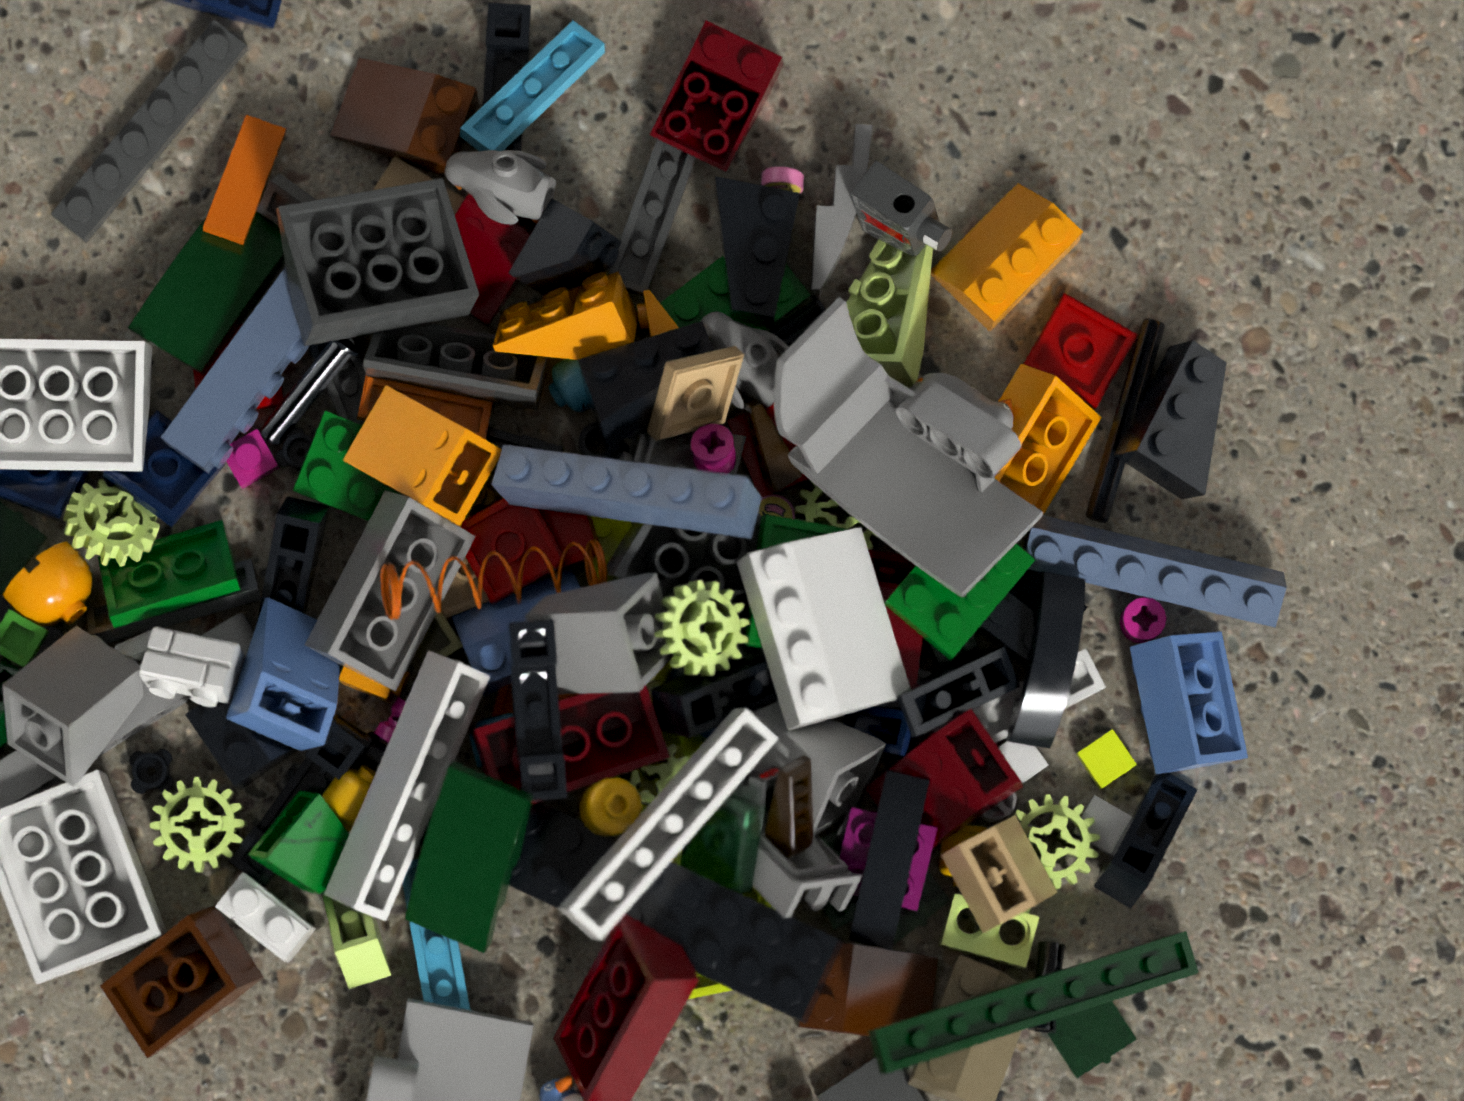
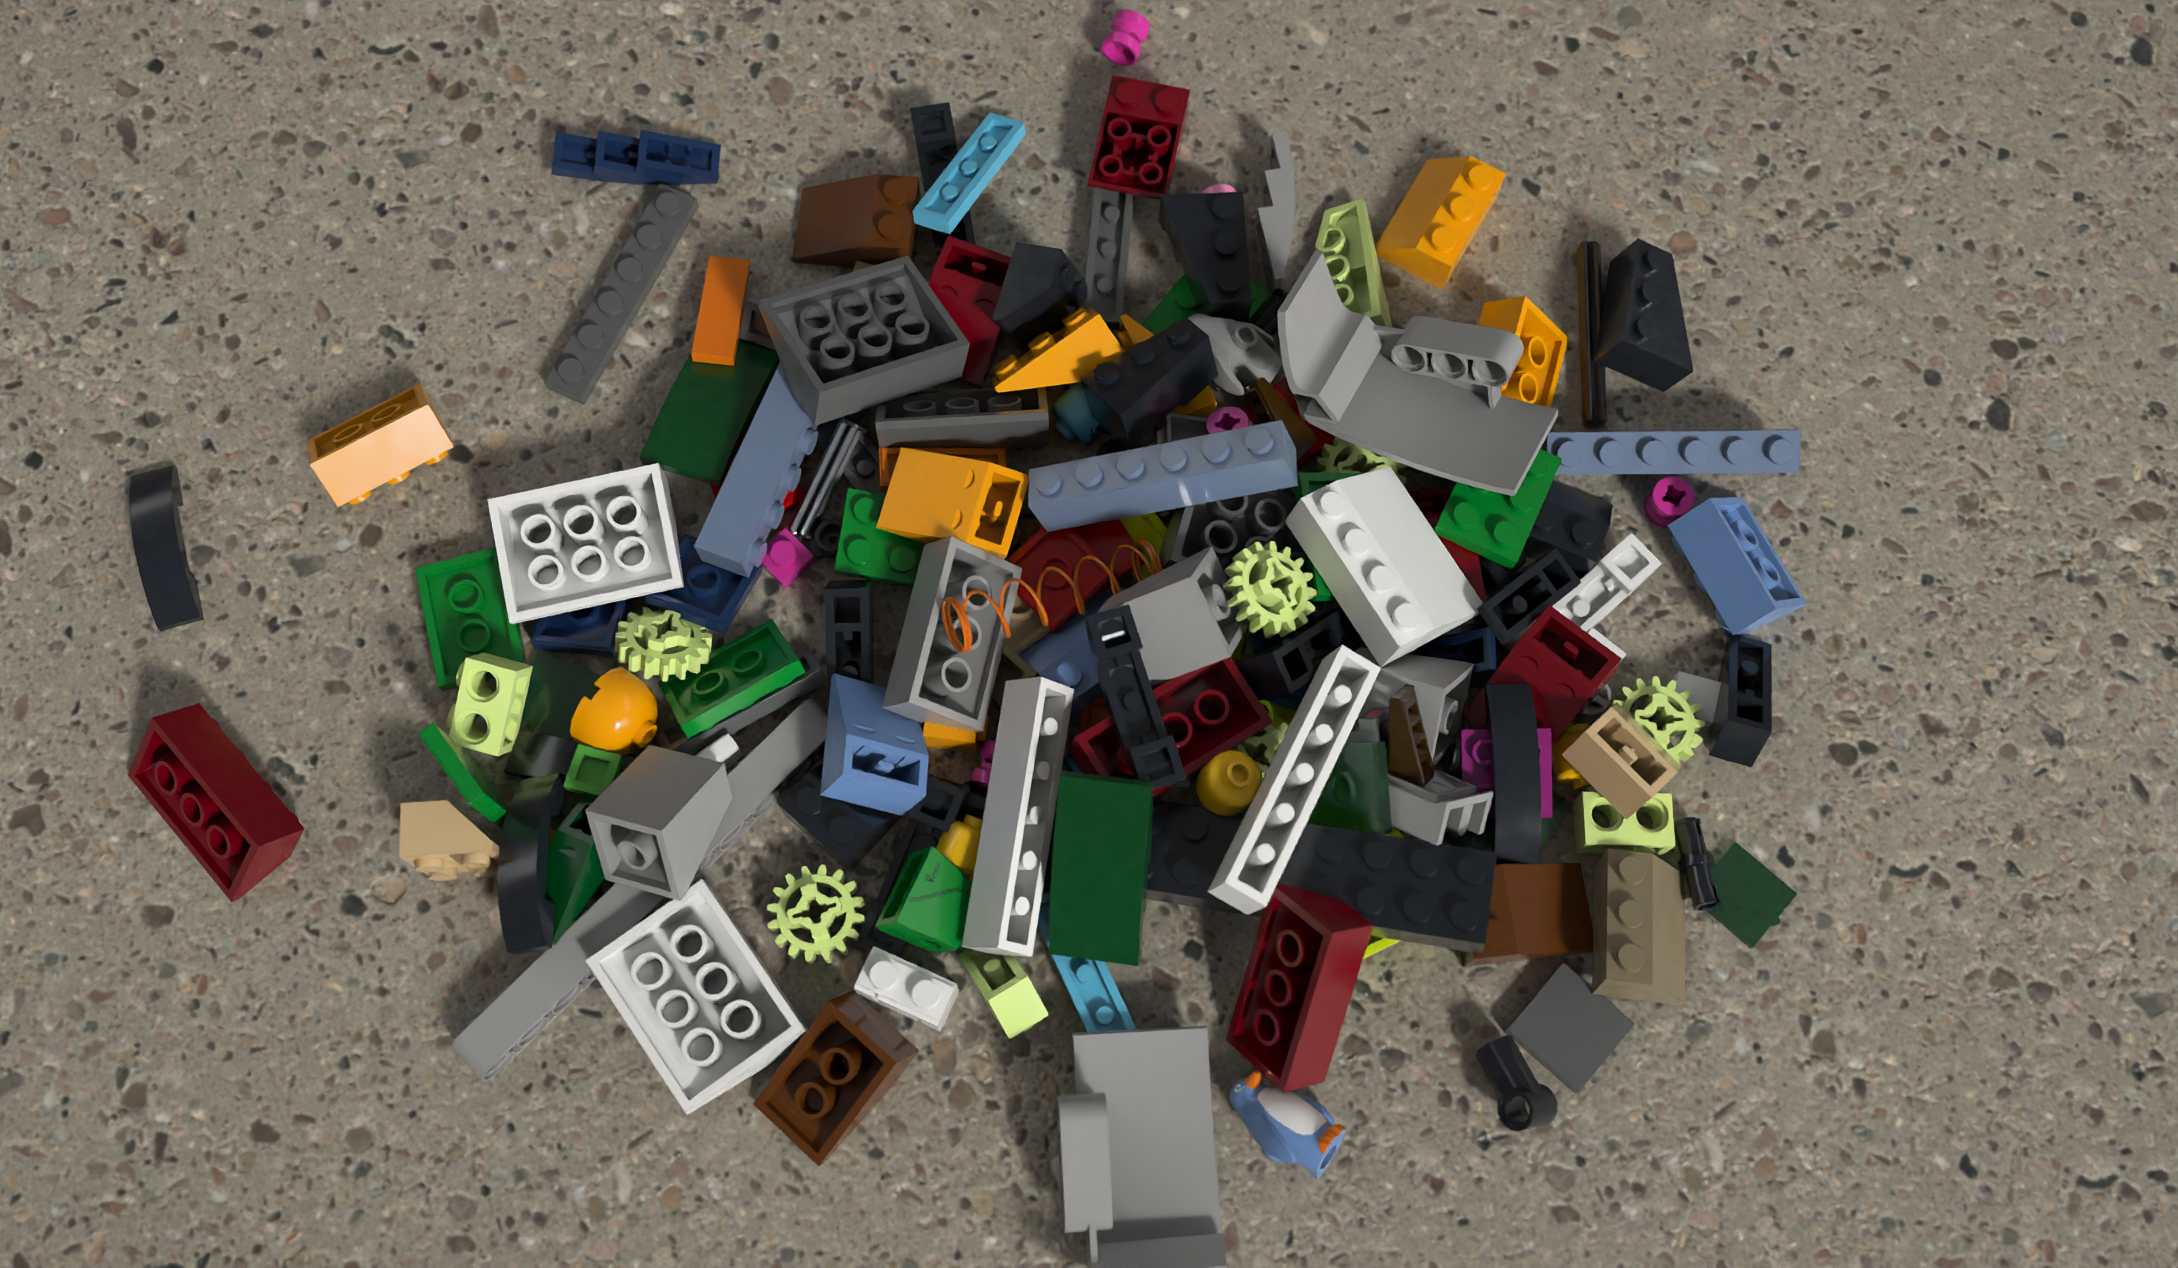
camera: 10 degrees left, 10 degrees down
(142, 762) = (746, 867): black plate -> none
(191, 666) = (774, 753): white brick -> none
(503, 183) = (965, 241): light grey animal -> none
(695, 392) = (1198, 379): tan tile -> none
(898, 212) = (1334, 194): dark grey torso -> none
(1032, 1002) = (1694, 877): dark green plate -> none
(1050, 661) = (1606, 552): black slope -> none
(1081, 349) = (1534, 273): red tile -> none
(1106, 759) = (1677, 637): neon yellow tile -> none

